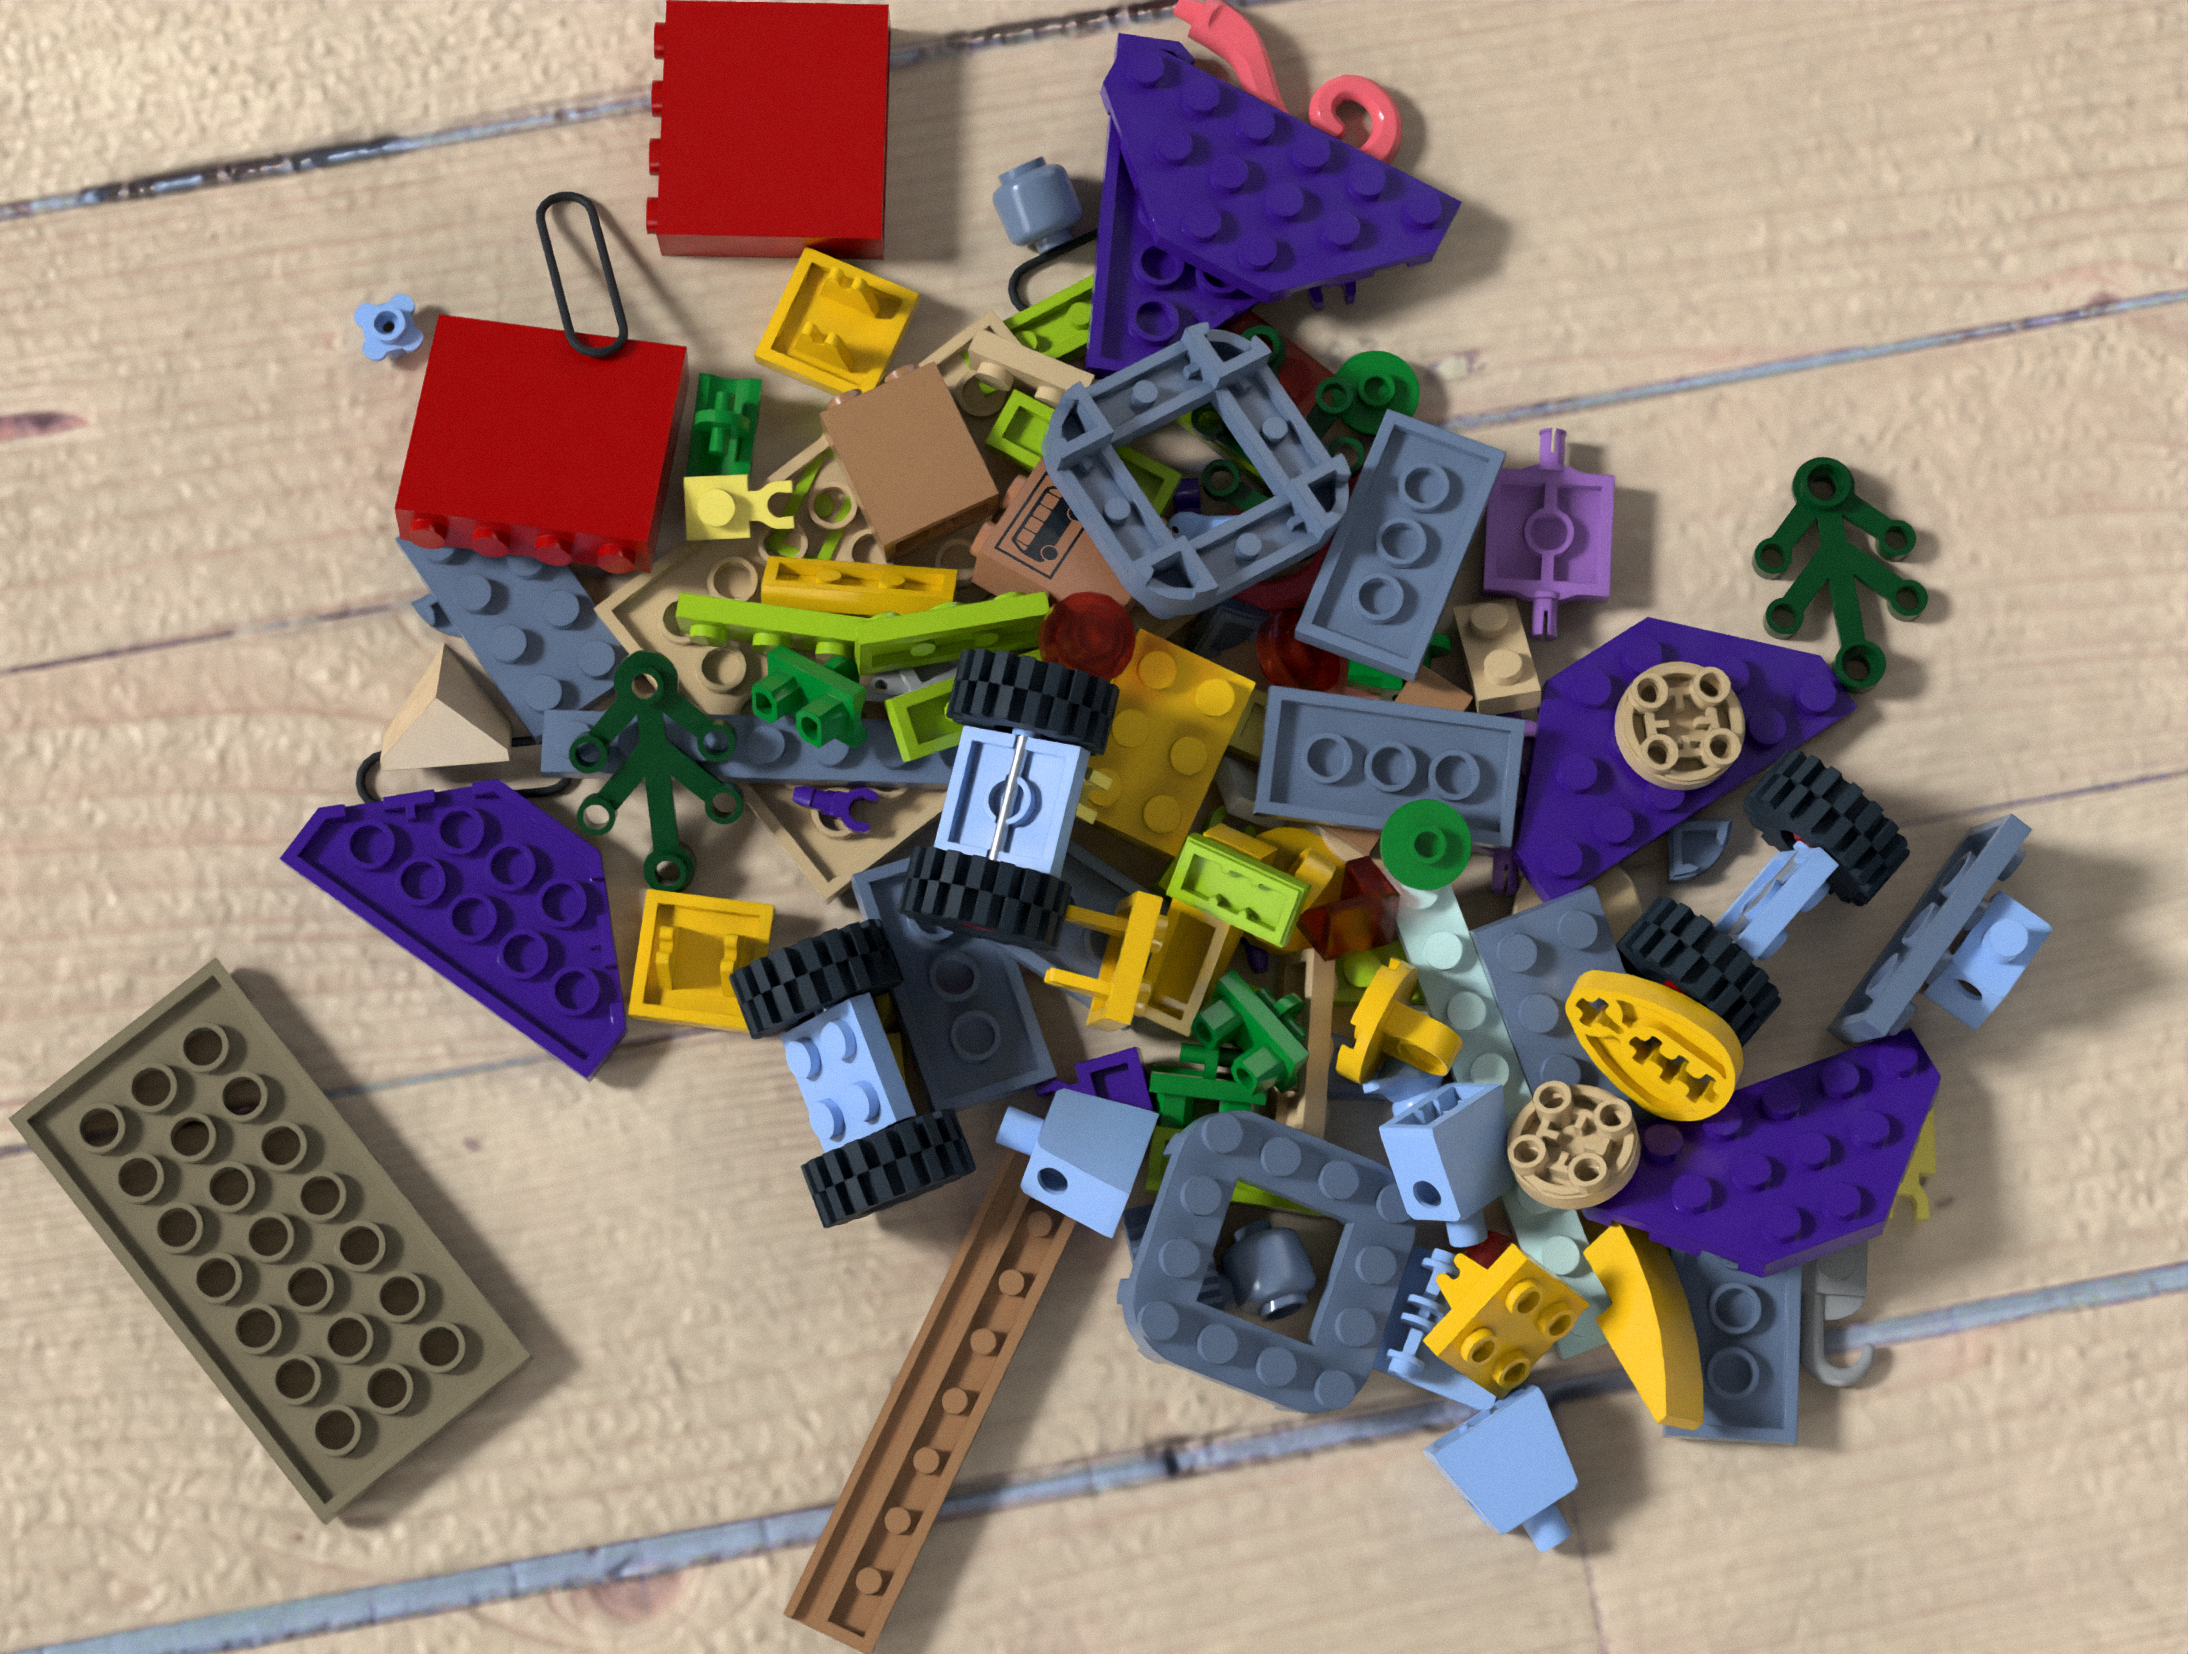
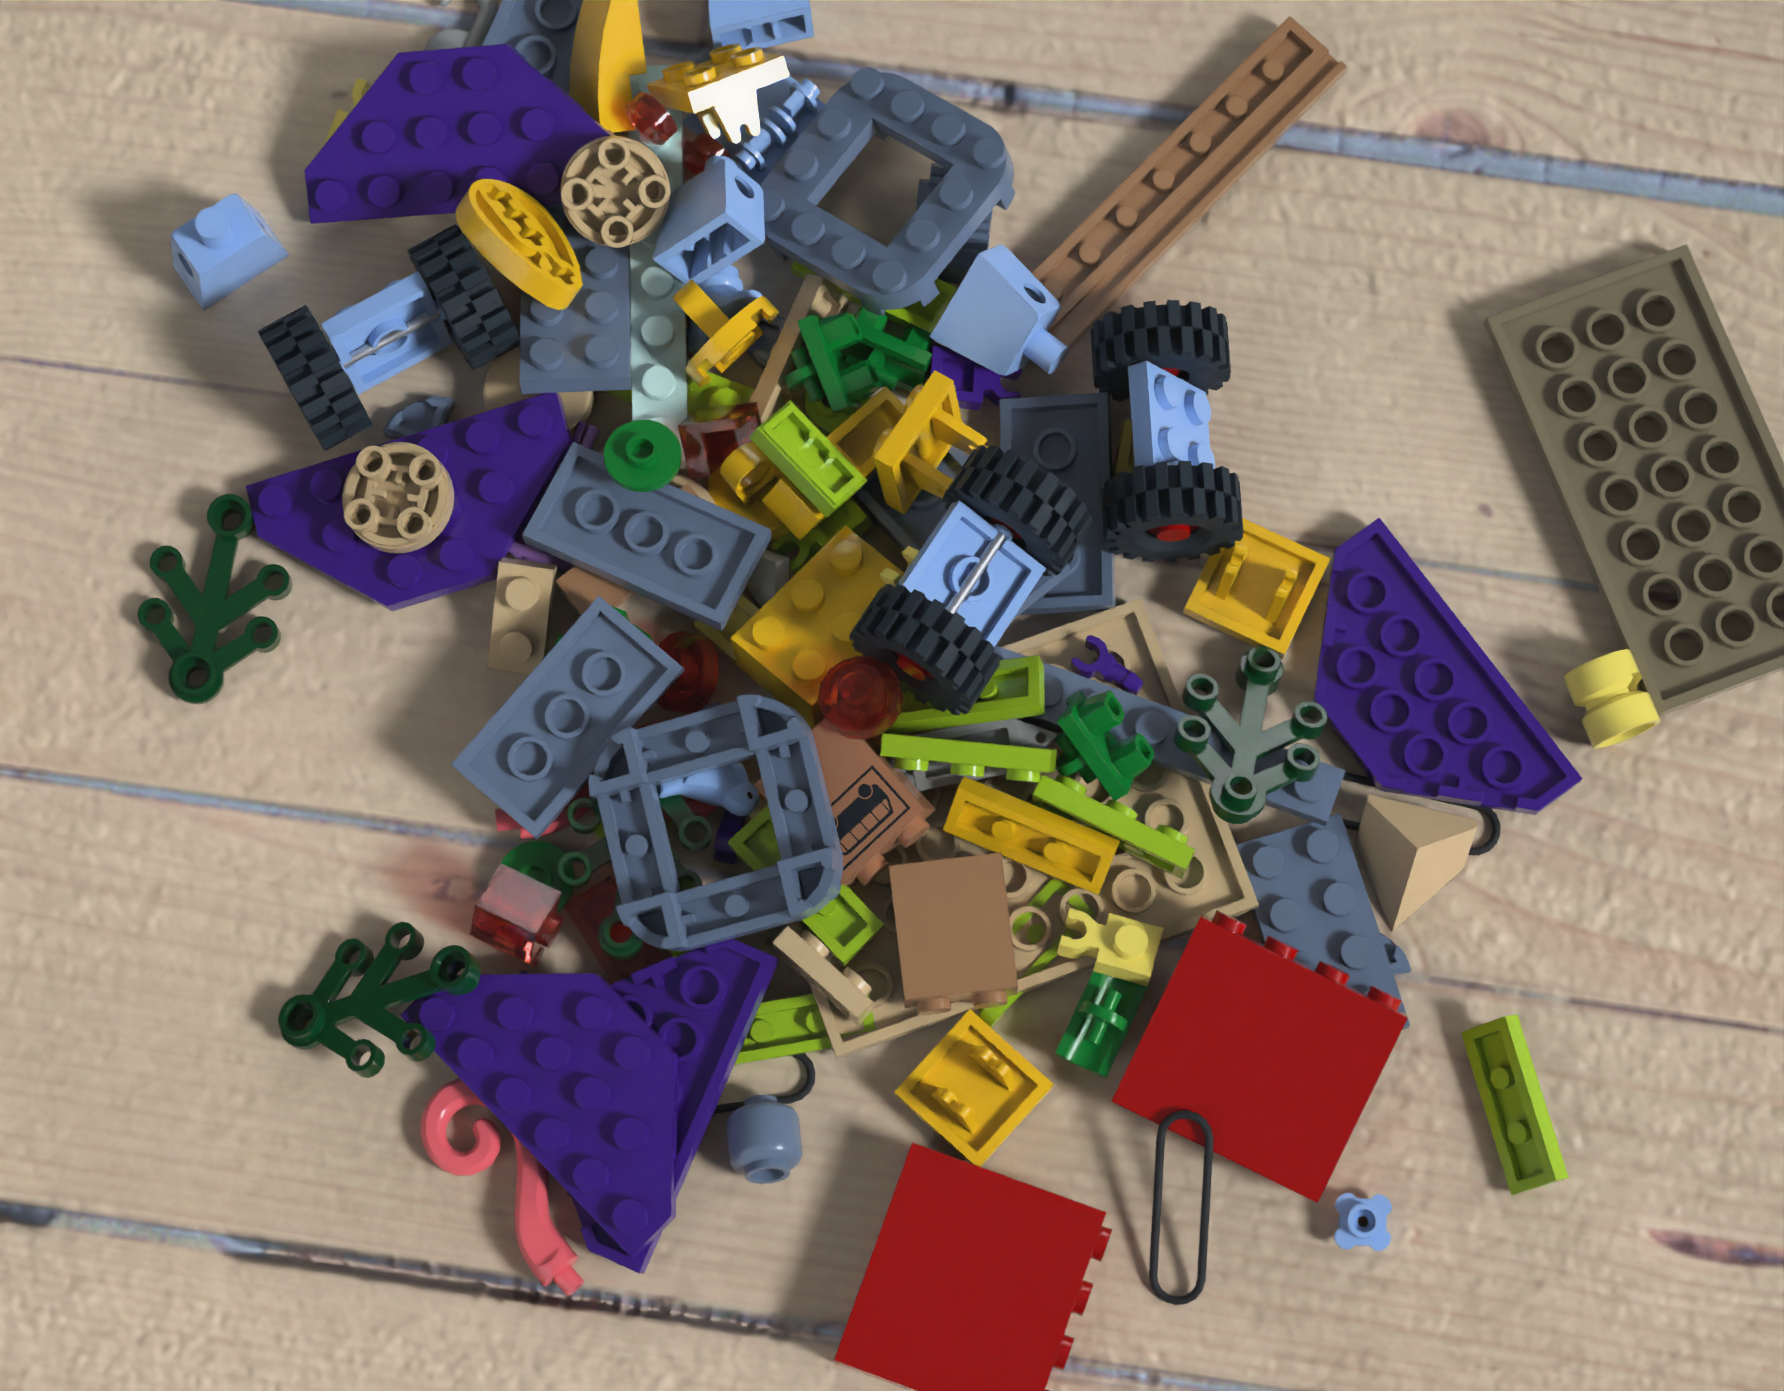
camera: 160 degrees left, 0 degrees up
(261, 492) = (1514, 1104): none -> lime plate
(264, 948) = (1611, 699): none -> light yellow wheel
(1269, 1271) = (884, 195): sand blue head -> none
(1375, 331) = (517, 915): none -> clear red brick
(1497, 204) = (374, 996): none -> dark green plant
(1549, 535) = (436, 706): medium lavender plate -> none
(1567, 1255) = (650, 118): none -> clear red tile
(1922, 941) = (266, 276): sand blue plate -> none

